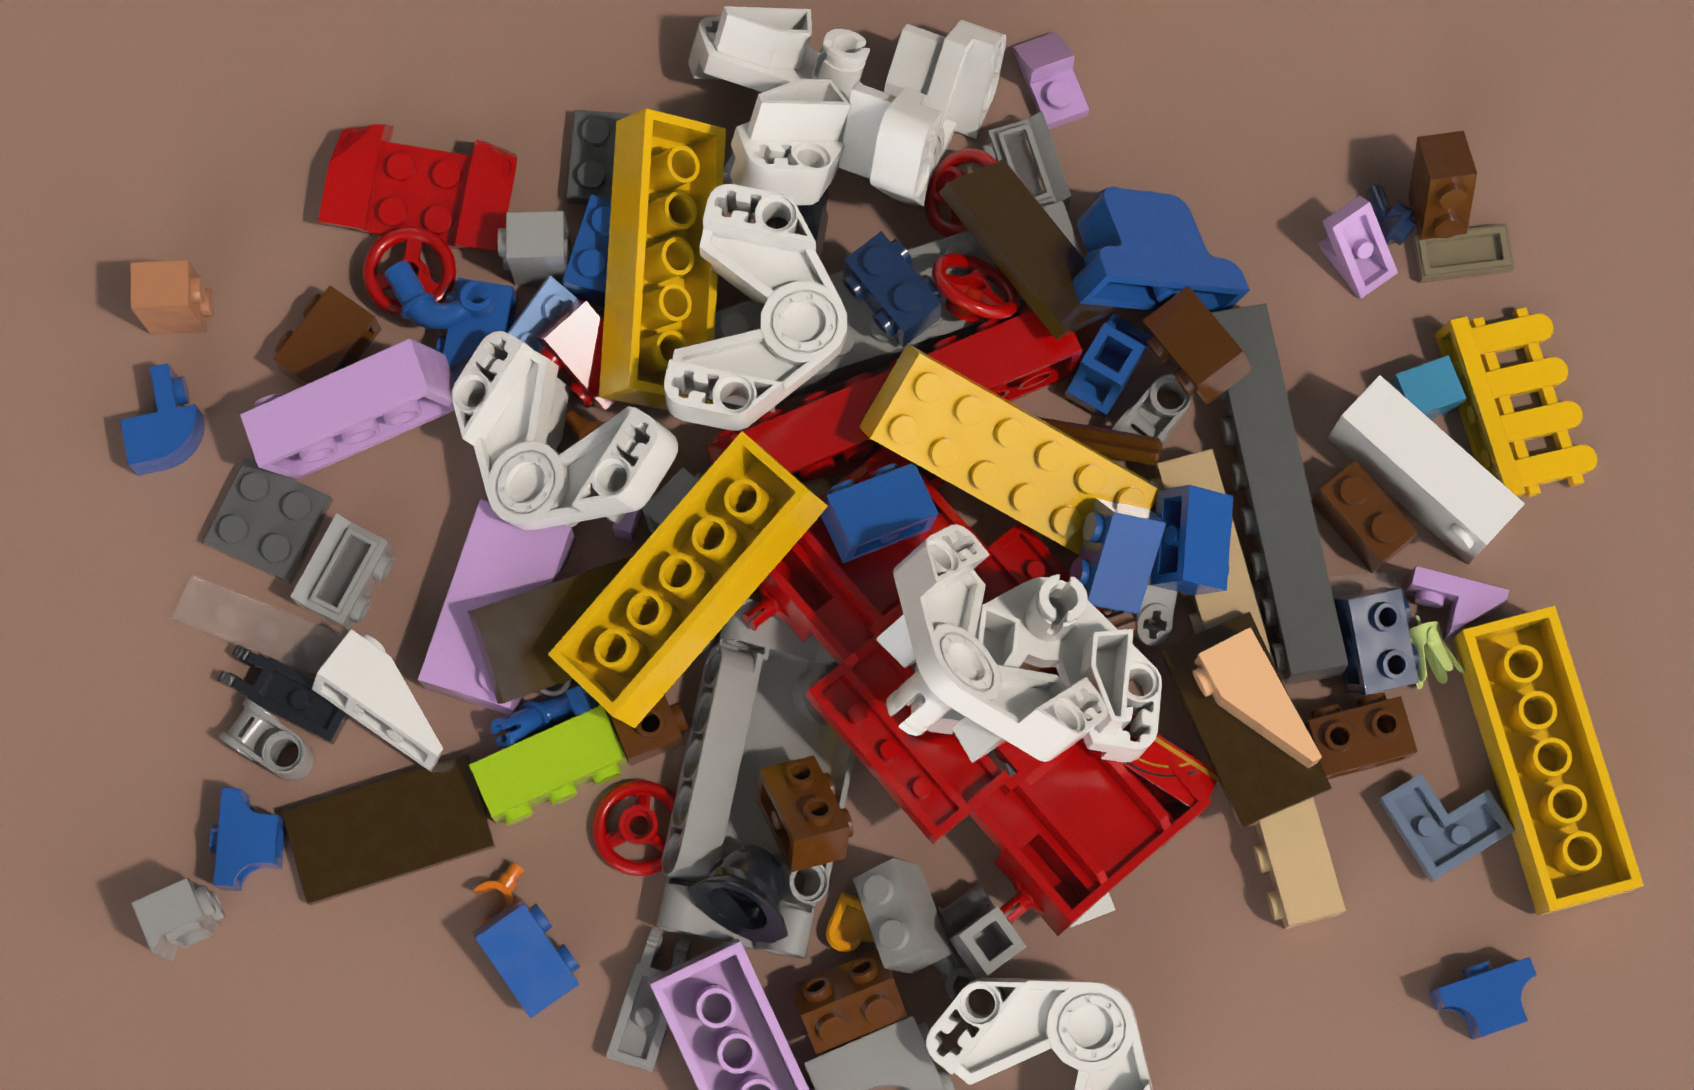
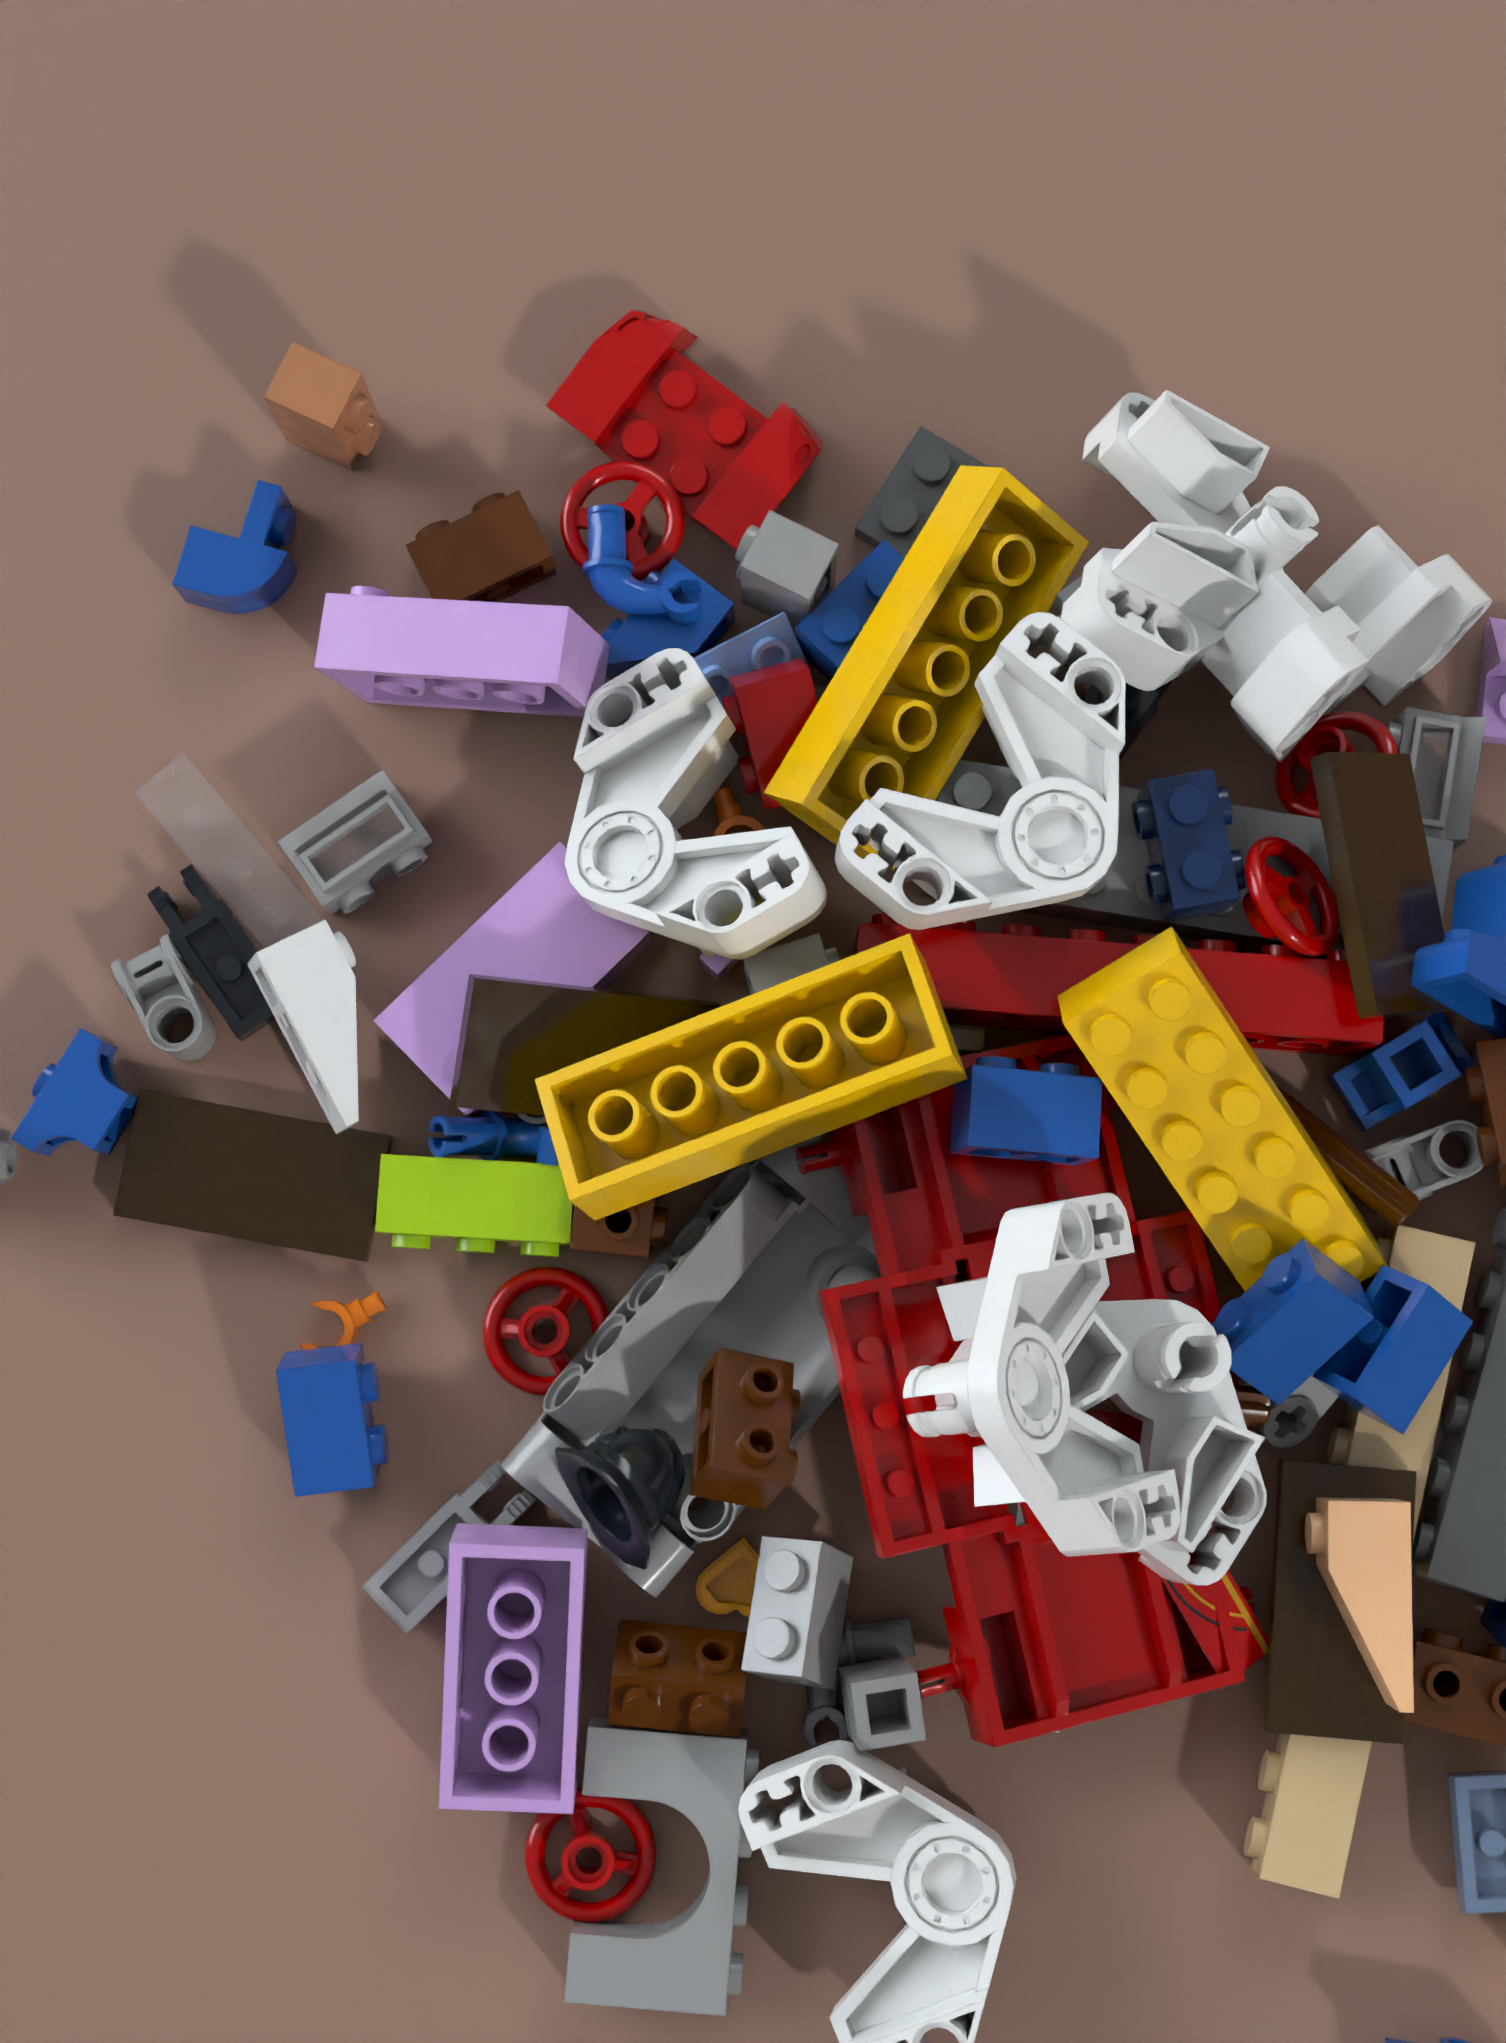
camera: 30 degrees right, 5 degrees up
(268, 521) = (304, 736): dark grey plate -> none

